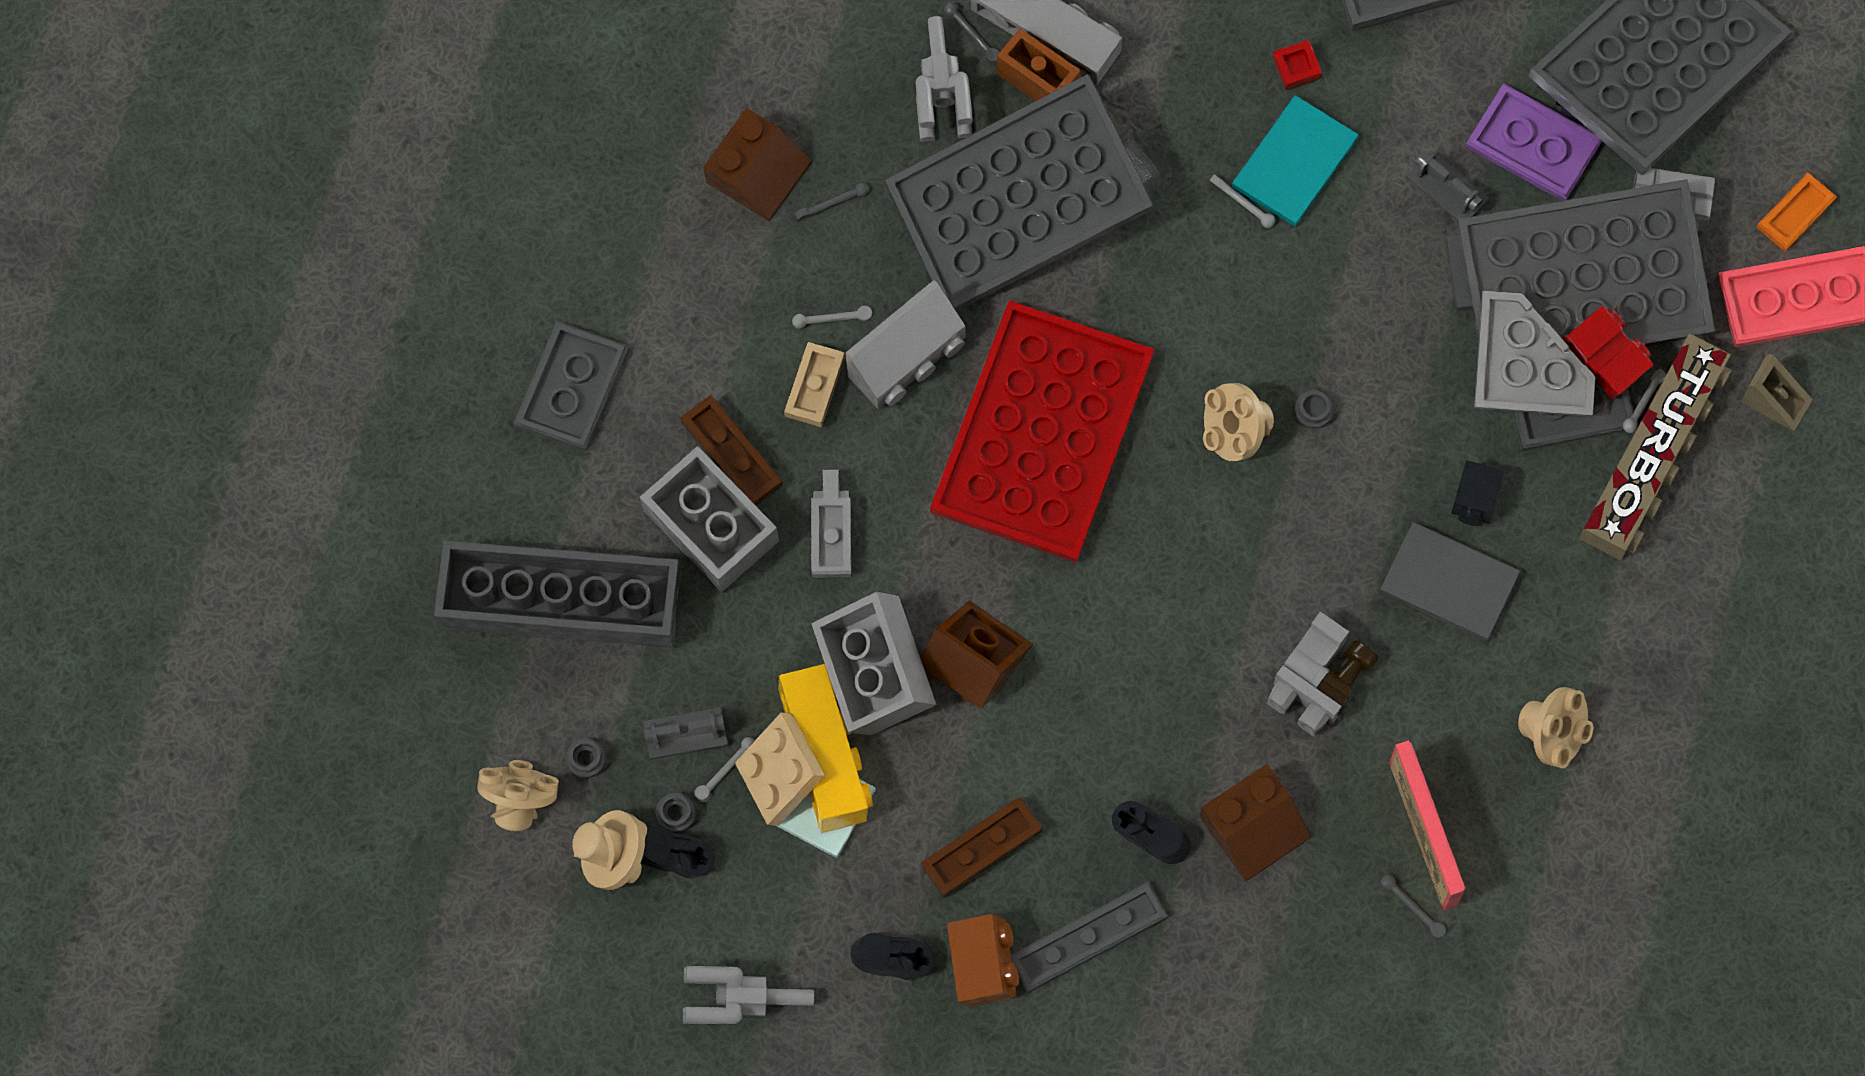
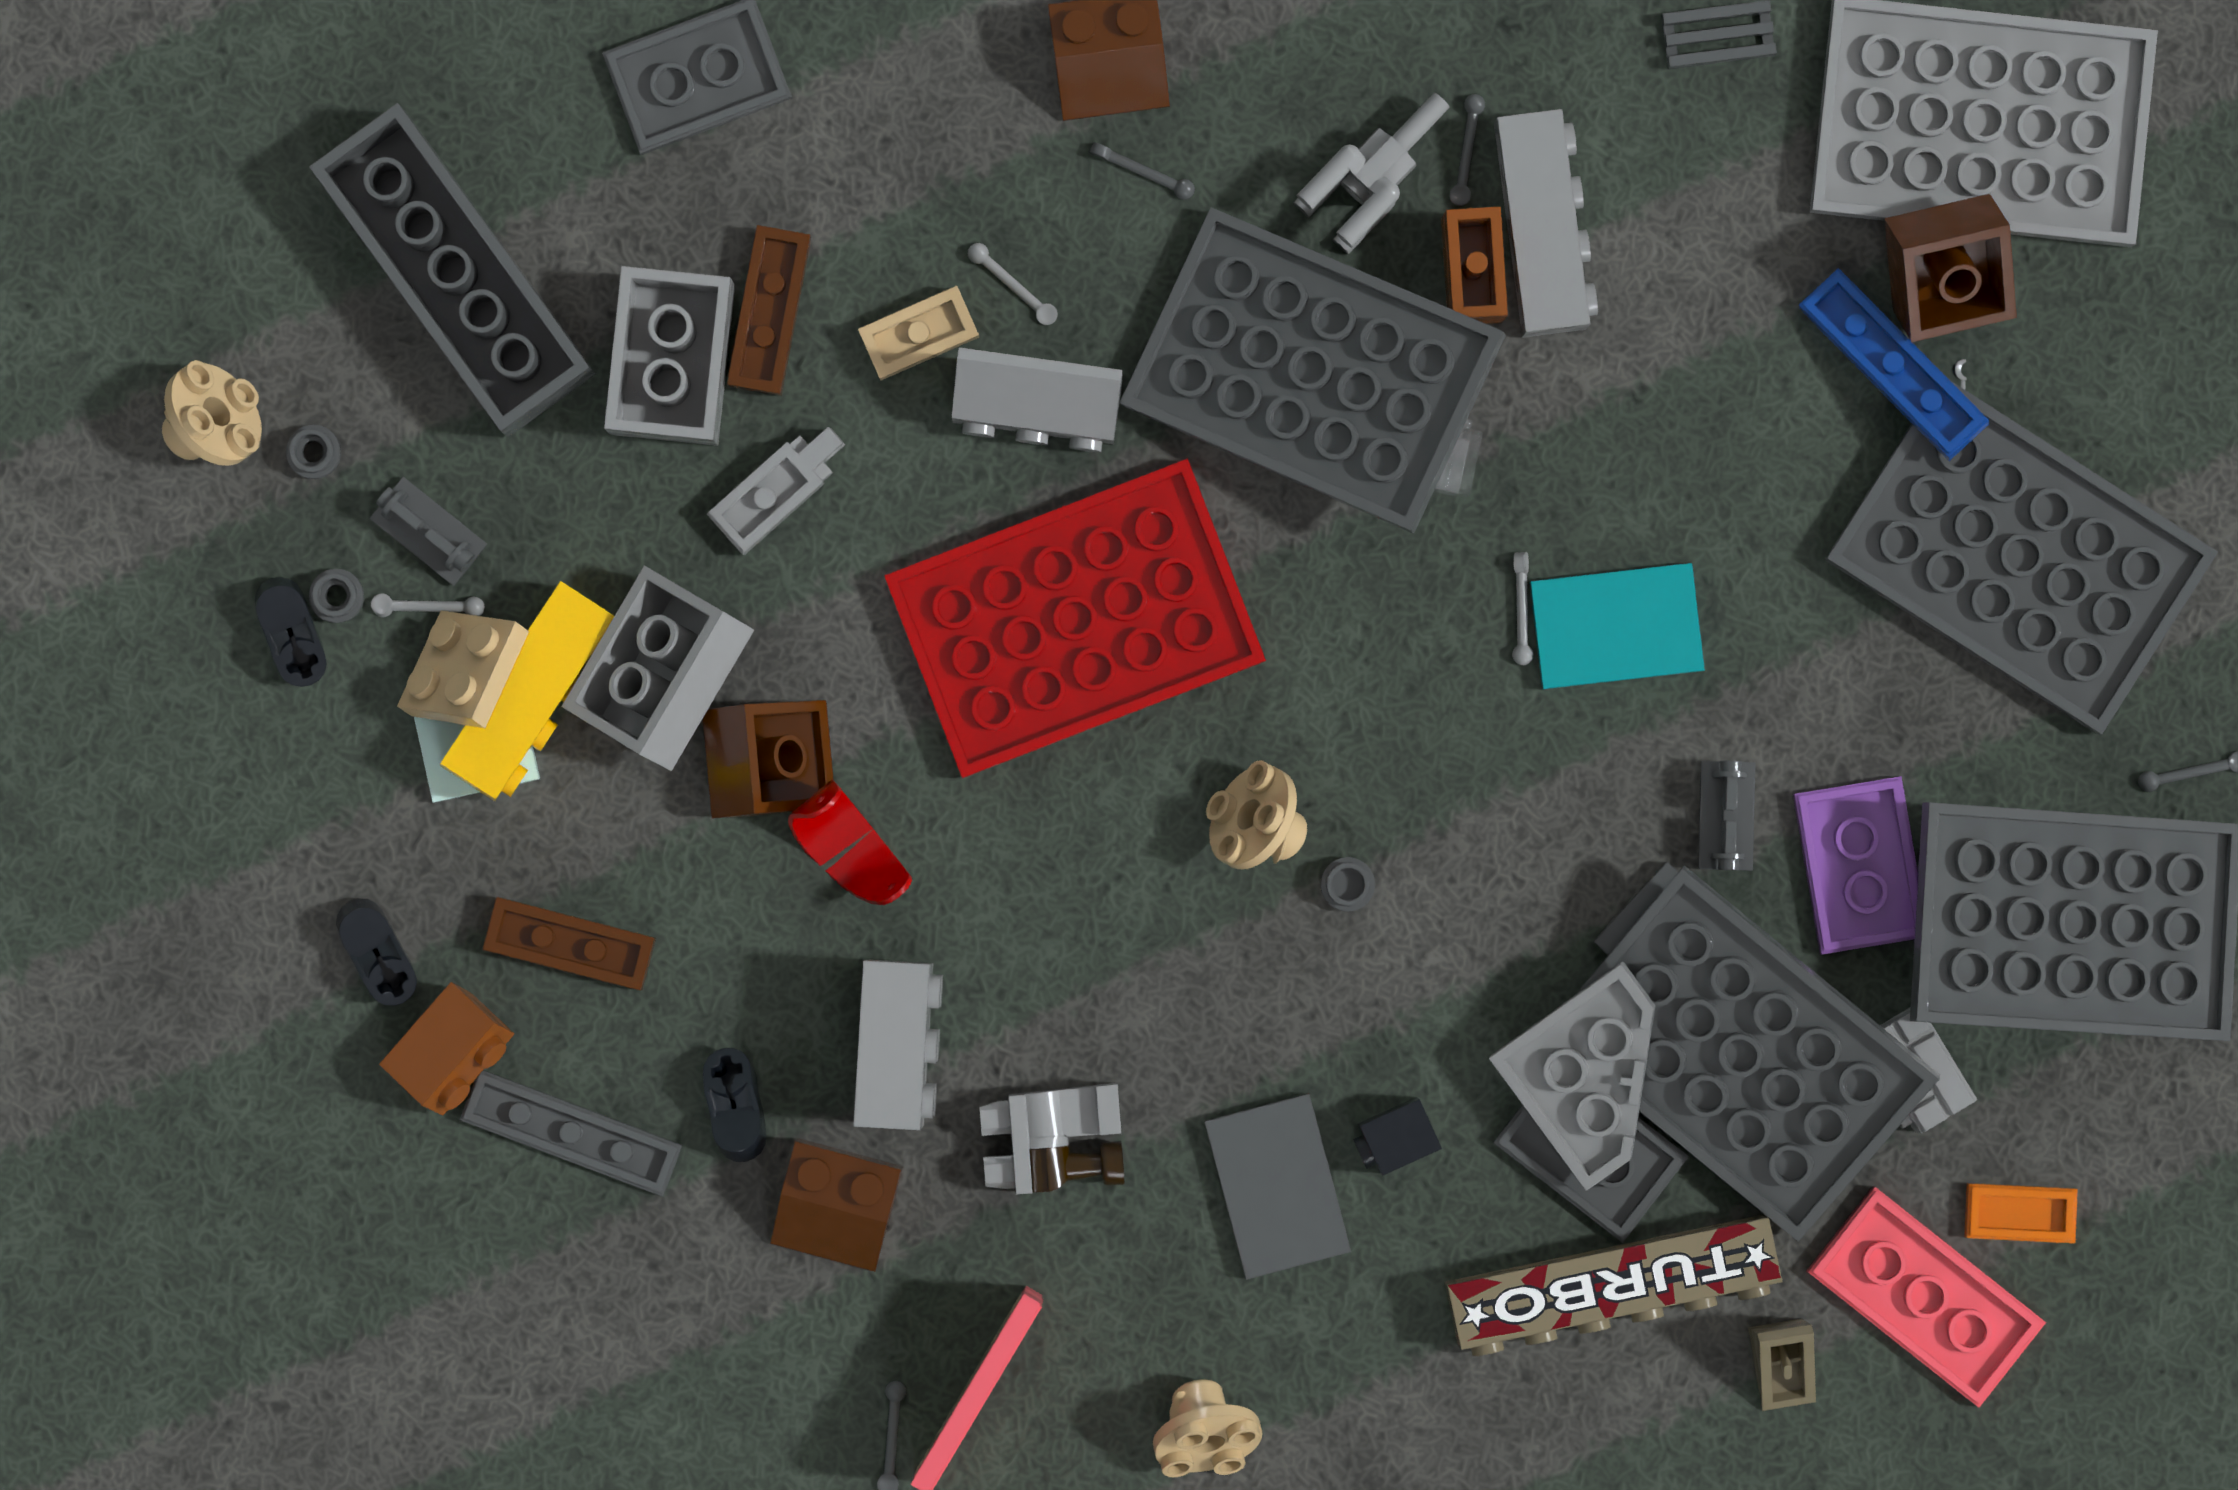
camera: 45 degrees right, 15 degrees up
(611, 849) = (233, 568): tan plate -> none
(737, 995) = (195, 828): light grey plant -> none
(1040, 651) = (829, 825): none -> red piece
(1194, 709) = (896, 1044): none -> light grey brick
(1297, 64) = (1729, 535): red plate -> none
(1608, 352) = (1670, 1150): red brick -> none
(1631, 425) = (1615, 1236): light grey hinge -> none

